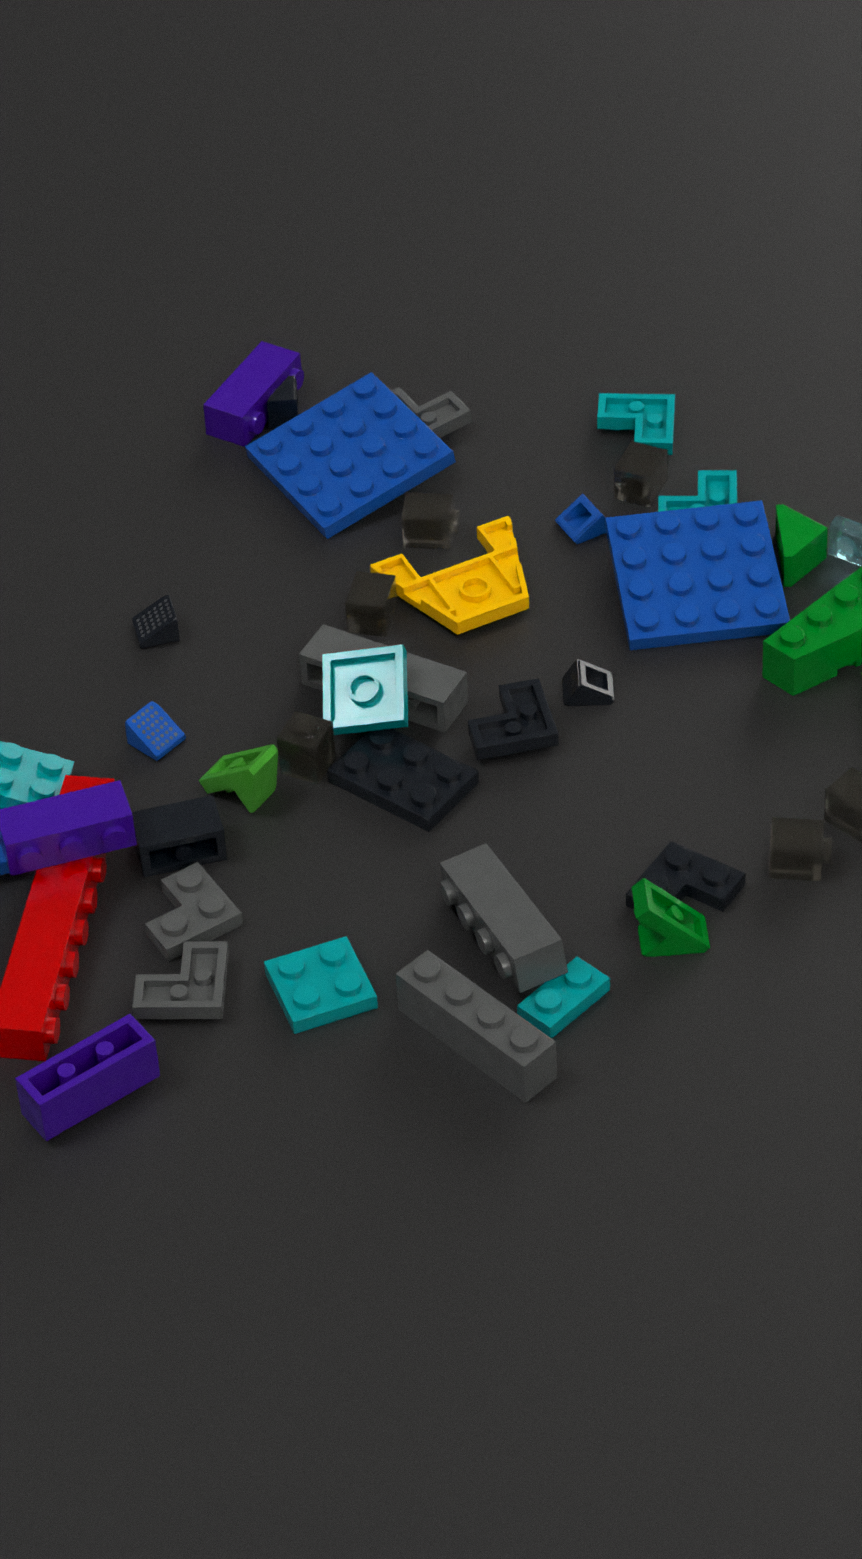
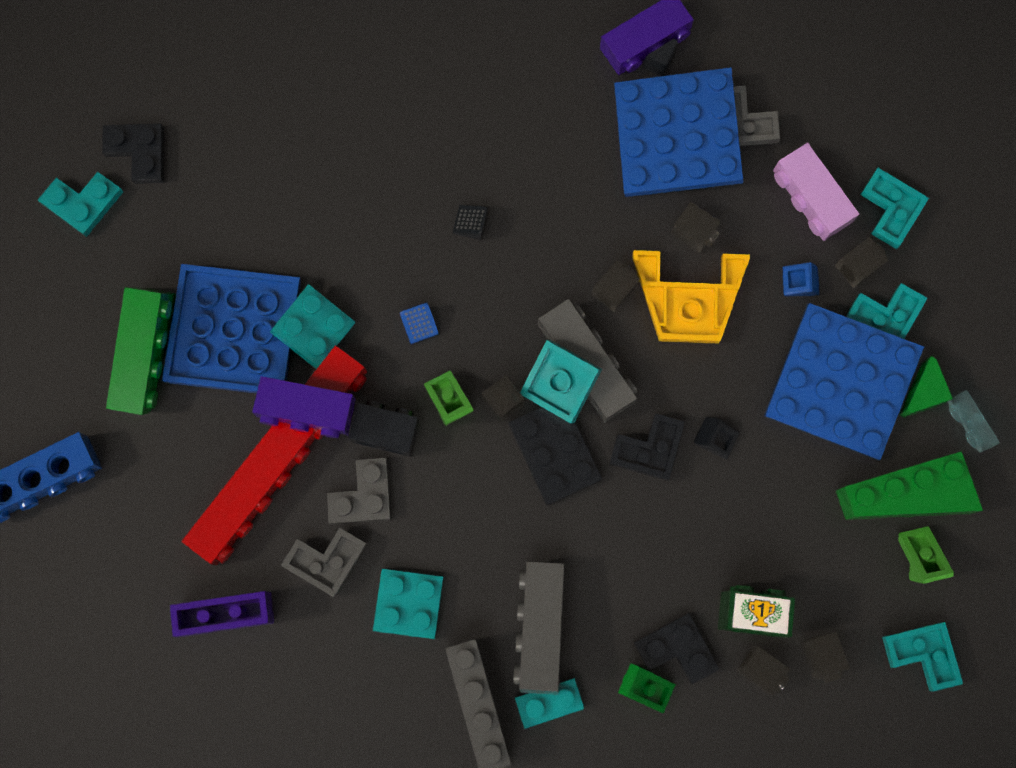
camera: 25 degrees right, 35 degrees up
(544, 440) = (815, 192): none -> lavender brick
(744, 789) = (756, 613): none -> brick

